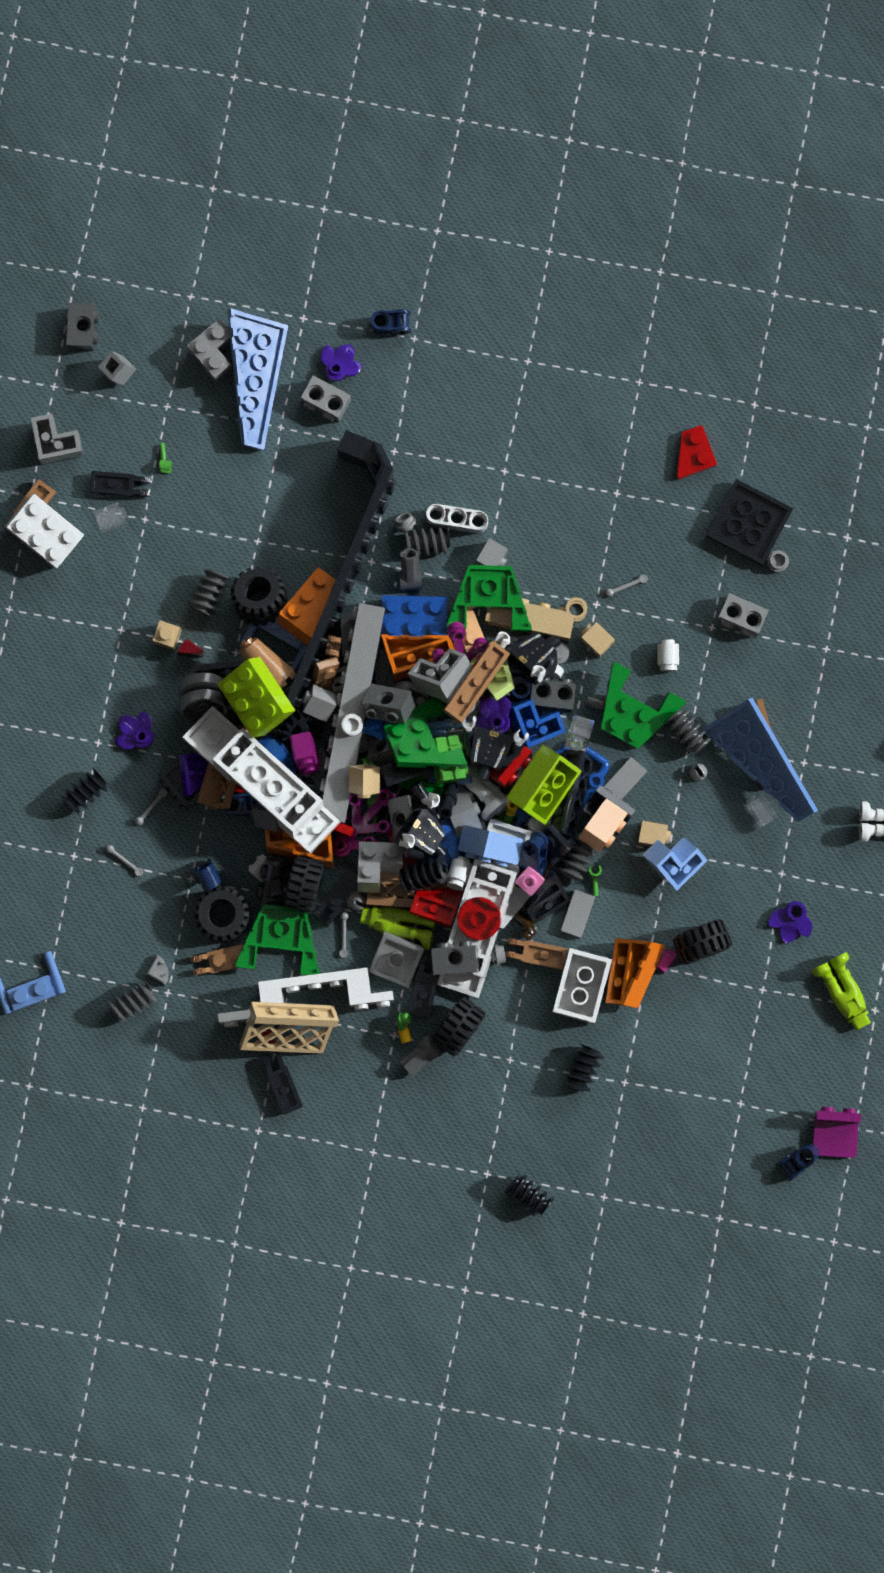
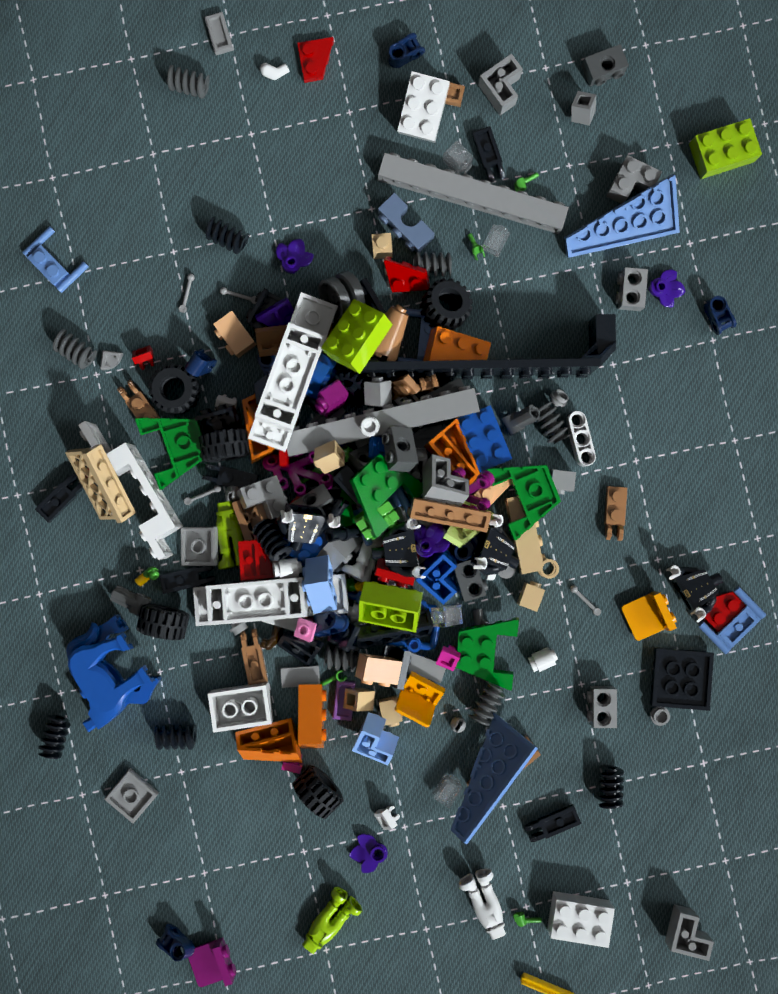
camera: 65 degrees right, 5 degrees up
(153, 519) = (472, 193): none -> light grey brick
(170, 932) = (141, 355): none -> red tile
(172, 598) = (416, 236): none -> sand blue arch
(190, 649) = (379, 269): dark red slope -> none
(191, 828) = (234, 334): none -> light nougat brick
(211, 624) = (405, 276): none -> red wing
(212, 539) = (476, 248): none -> bright green hand
(213, 515) = (496, 240): none -> clear brick
(222, 242) = (725, 148): none -> lime brick
(468, 961) = (201, 591): dark grey brick -> none
(479, 918) = (254, 602): red tile -> none
(493, 1119) = (99, 679): none -> blue piece
(547, 515) = (615, 511): none -> medium nougat hinge
(622, 879) = (339, 712): none -> medium lavender tile
(624, 751) = (448, 657): none -> dark pink tile
(624, 917) = (311, 716): none -> orange wedge
(627, 861) = (359, 699): none -> tan brick
(627, 1144) = (131, 795): none -> light grey tile
(652, 798) = (419, 699): none -> light orange bracket
(661, 468) = (696, 589): none -> black torso
(669, 528) = (648, 615): none -> light orange bracket
(719, 442) = (738, 626): none -> medium blue plate
(763, 887) = (385, 818): none -> white tile
(828, 642) = (612, 788): none -> black piece
(841, 716) = (554, 823): none -> black hinge

